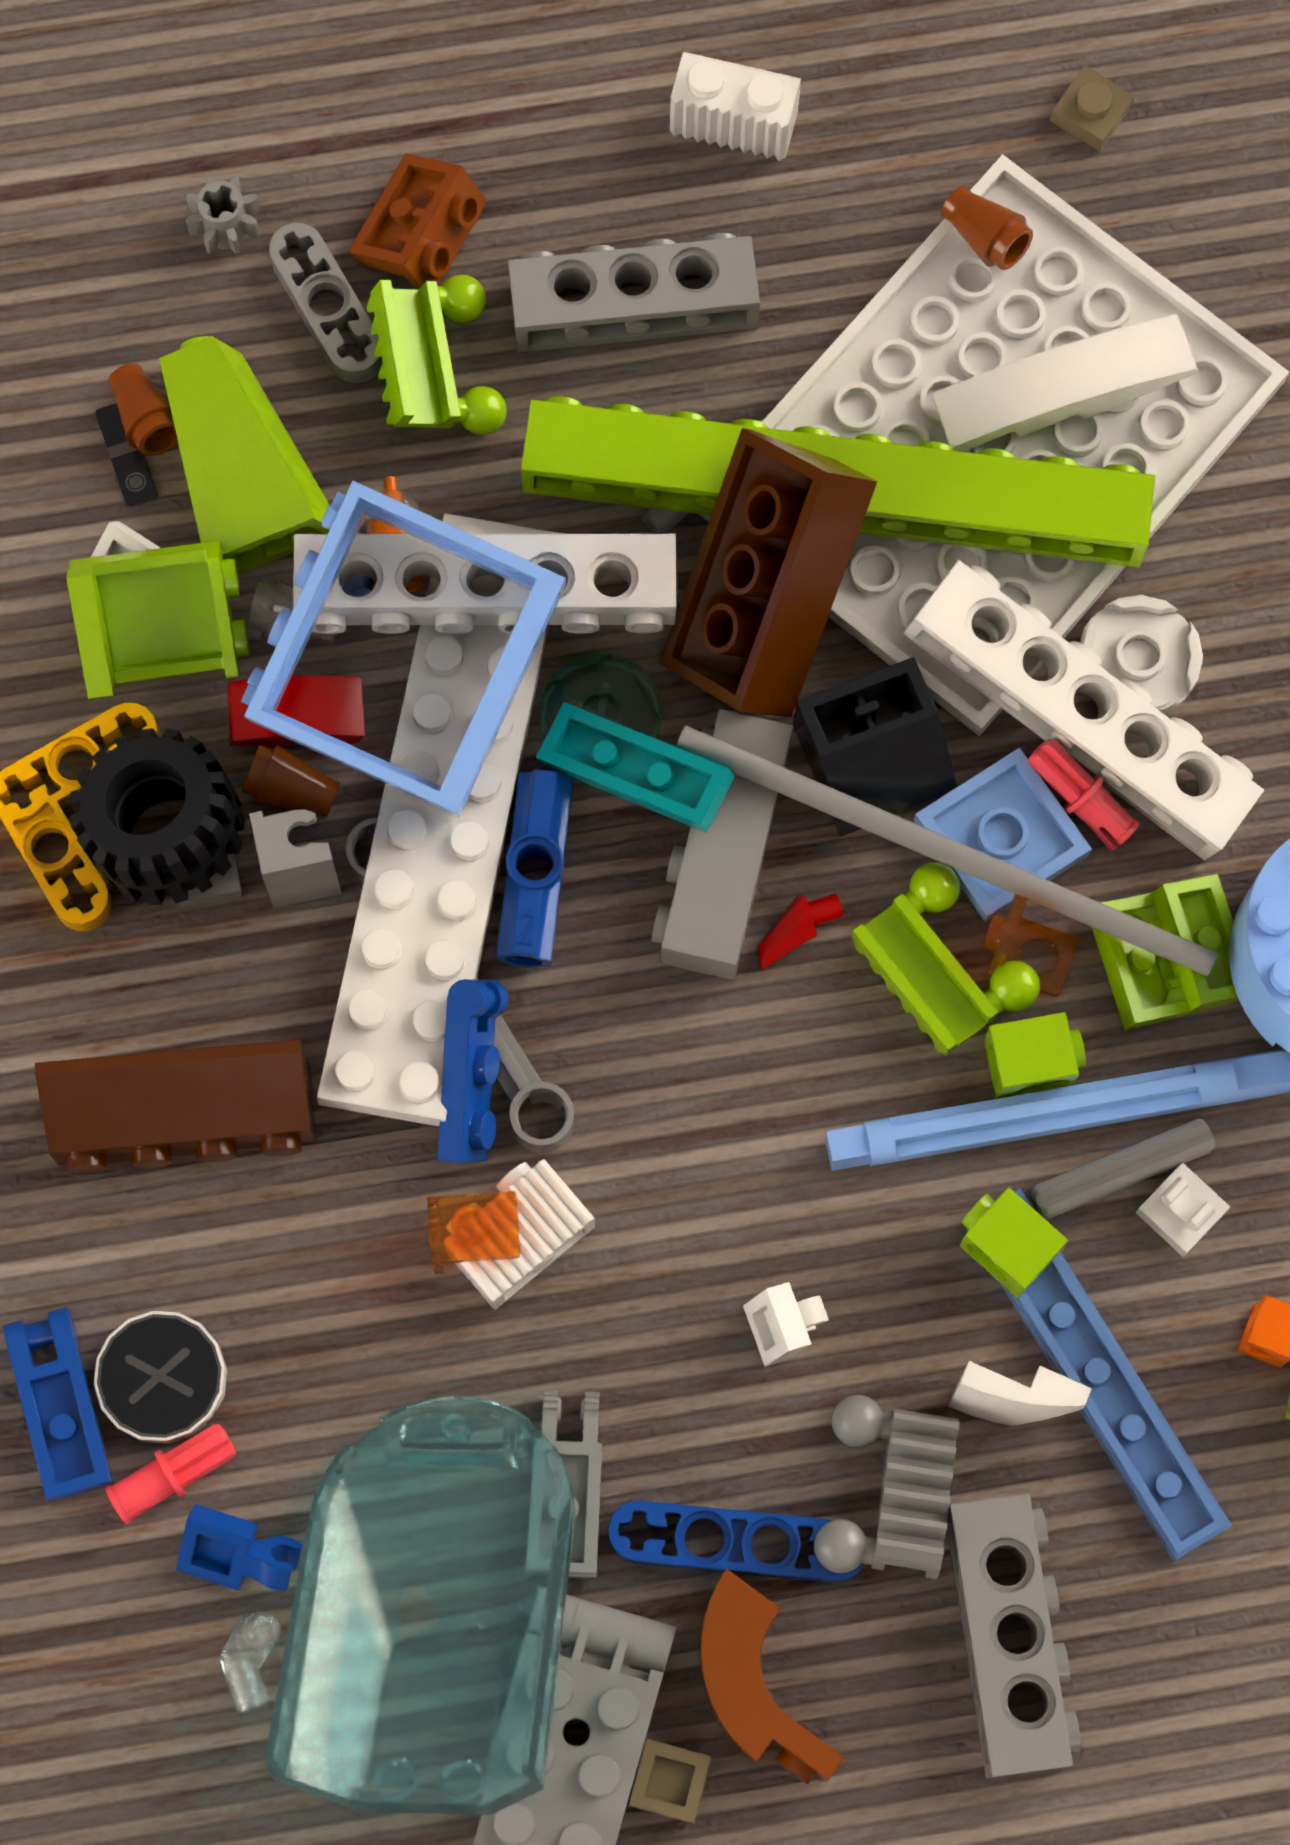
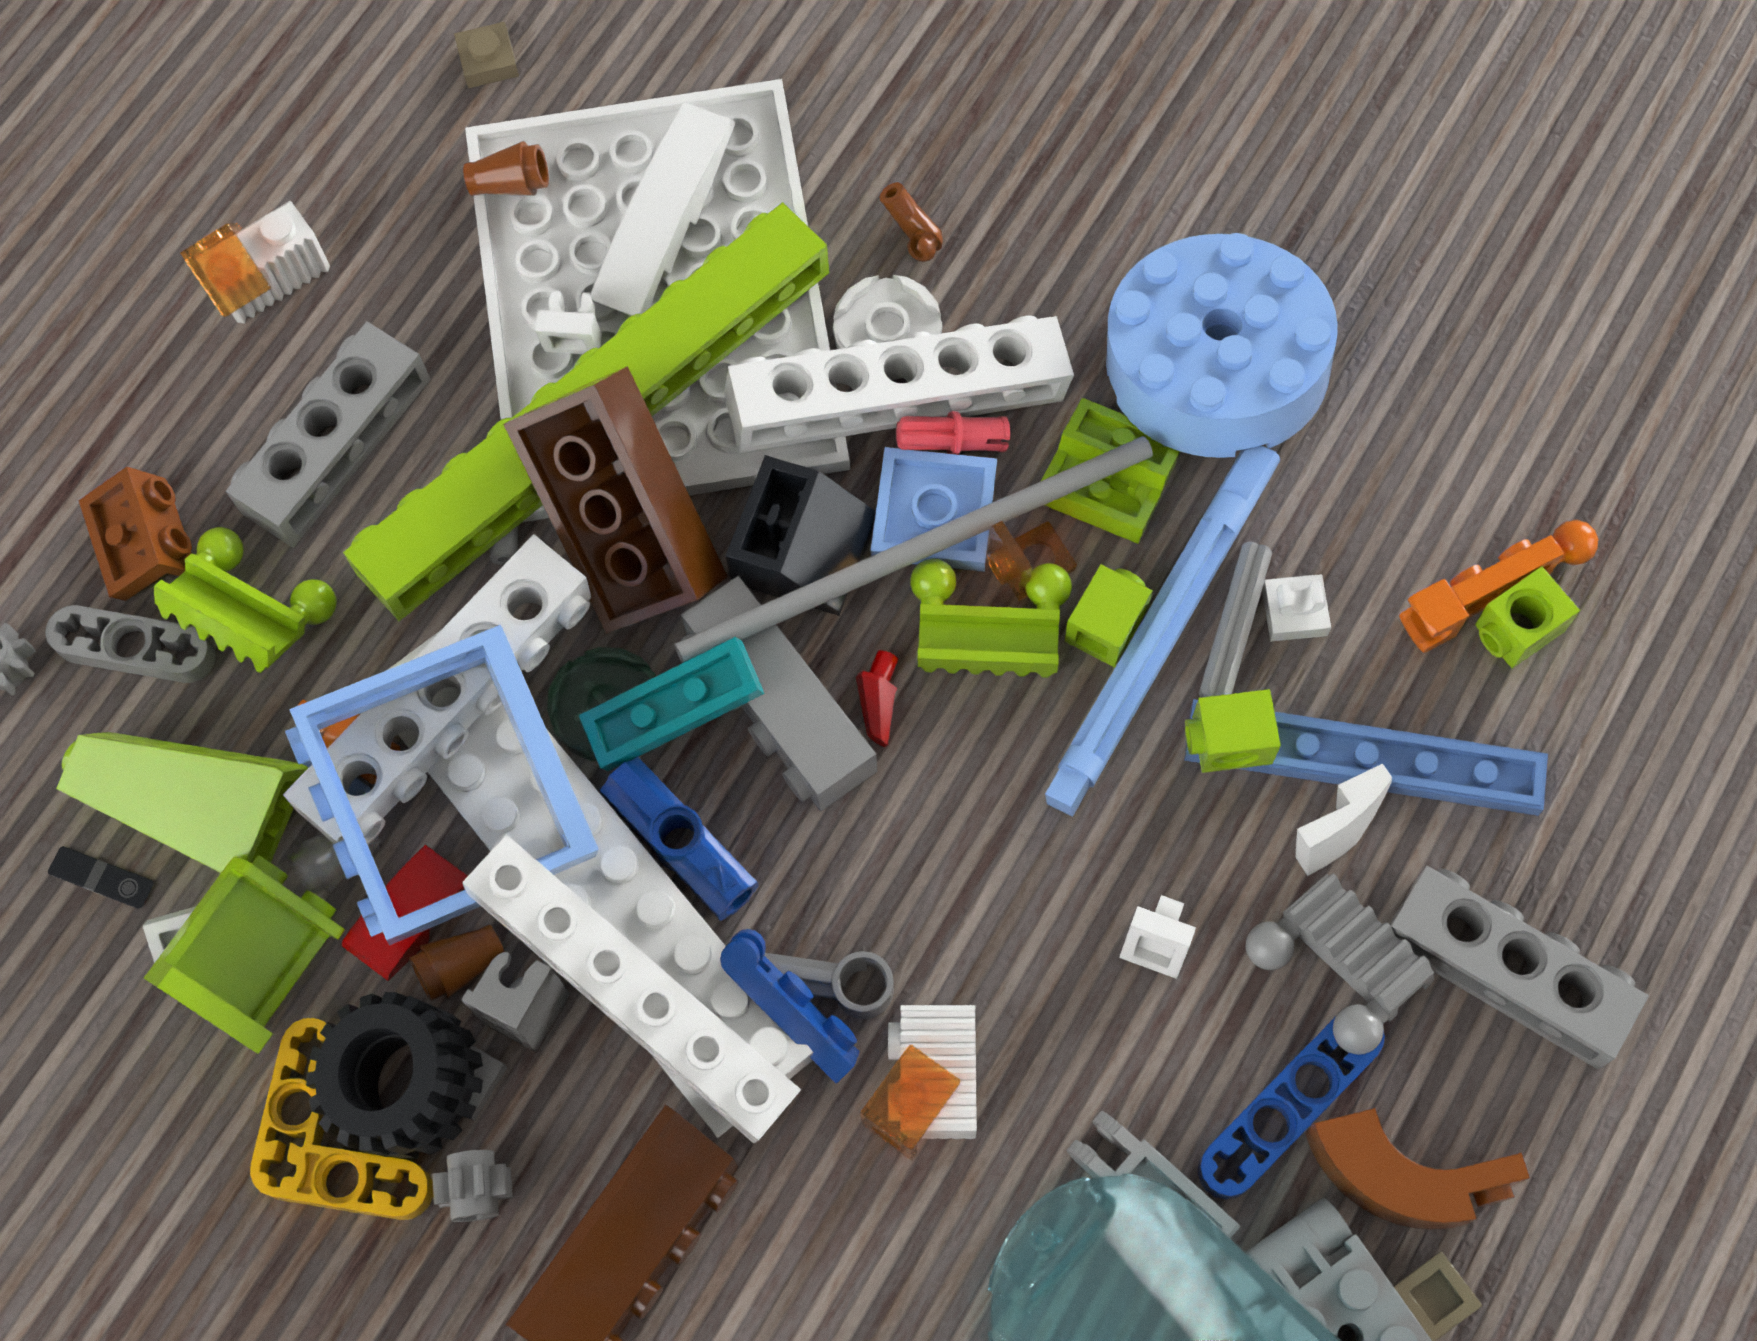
camera: 45 degrees left, 5 degrees down
(126, 949) = (472, 1185): none -> light grey gear
(143, 411) = (83, 835): dark orange cone -> none
(362, 934) = (630, 989): none -> white brick
(691, 86) = (226, 269): none -> clear orange bracket
(887, 404) = (568, 331): none -> white tile
(1257, 596) = (919, 228): none -> dark orange arm

